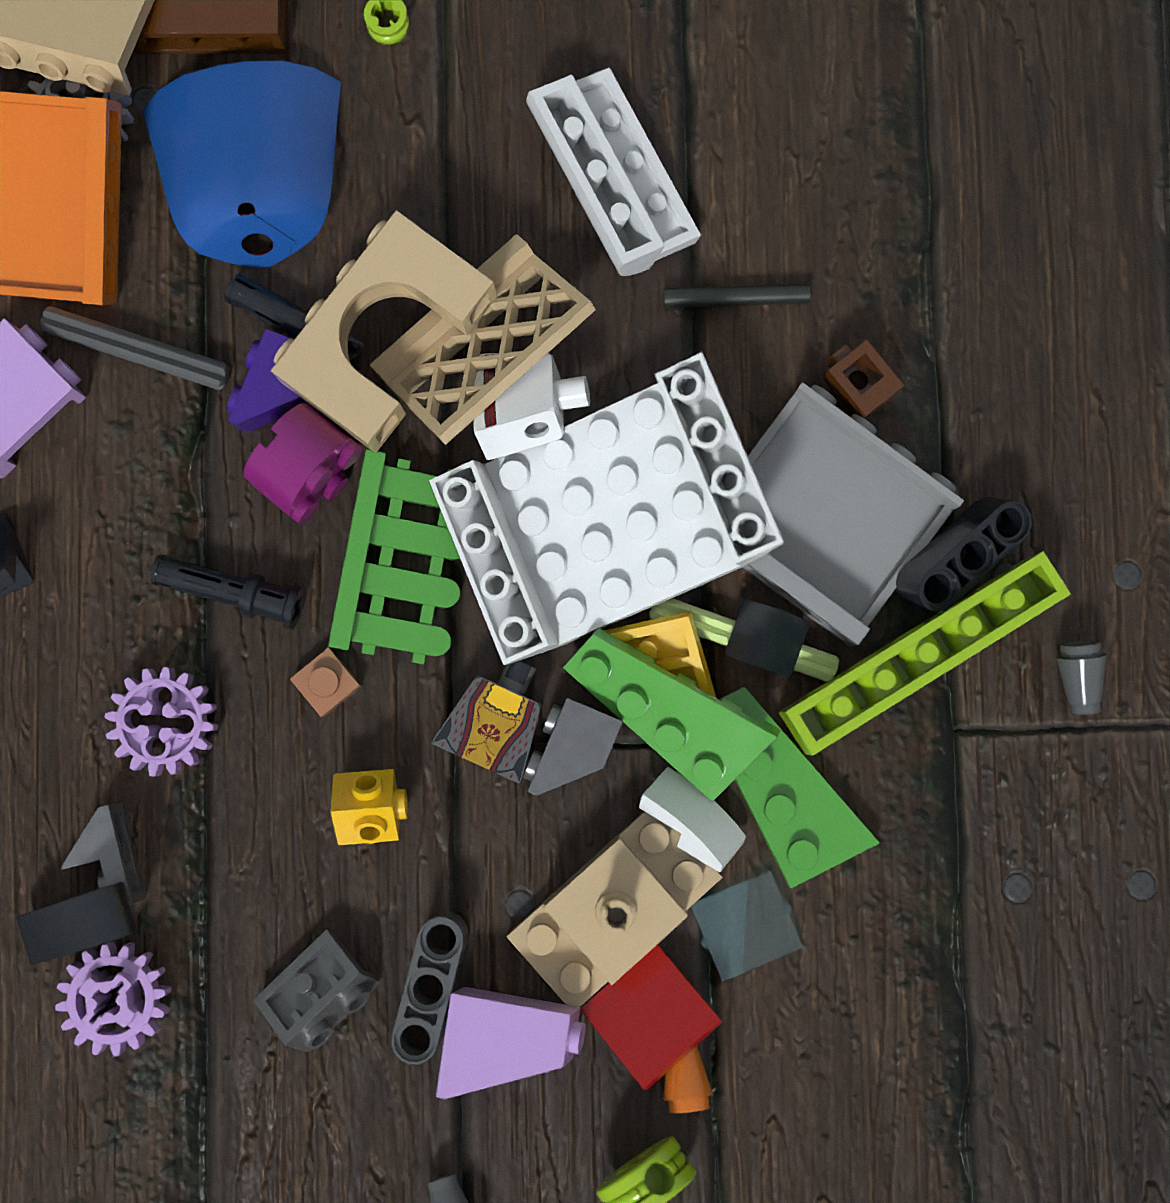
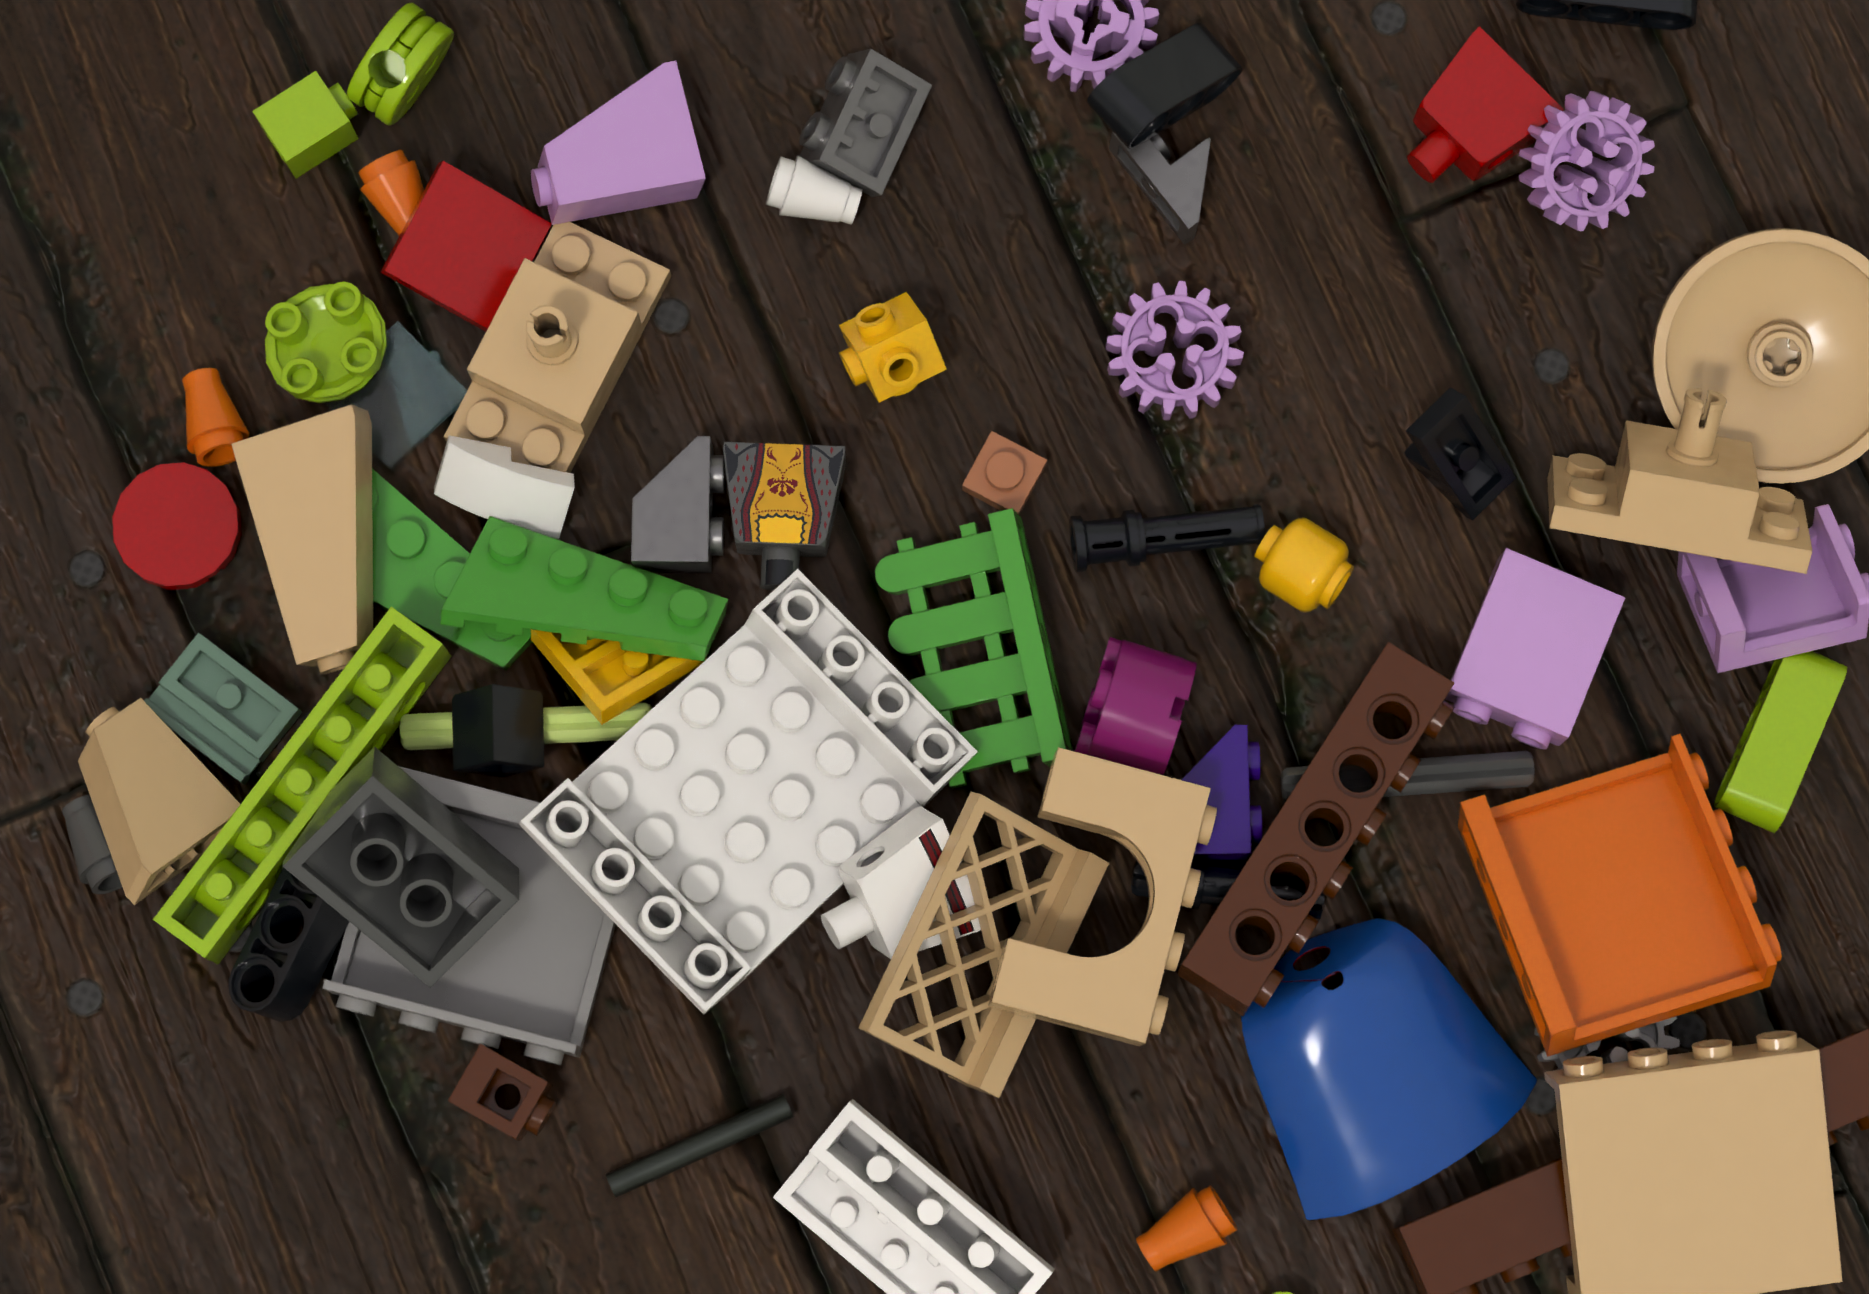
camera: 160 degrees right, 5 degrees down
(137, 523) = (1303, 565): none -> yellow head
(197, 353) = (1393, 686): none -> reddish brown brick
(377, 953) = (812, 192): none -> white cone
(419, 1009) = (734, 150): dark grey beam -> none
(424, 101) = (1188, 1229): none -> orange cone
(733, 1164) = (308, 123): none -> lime brick
(783, 985) = (325, 342): none -> lime dish
(846, 838) = (316, 529): none -> tan slope
(875, 559) = (403, 868): none -> dark grey slope
(888, 959) = (211, 418): none -> orange cone
(942, 891) = (176, 526): none -> red tile
(959, 739) = (222, 708): none -> sand green plate
(1036, 690) = (150, 797): none -> tan slope

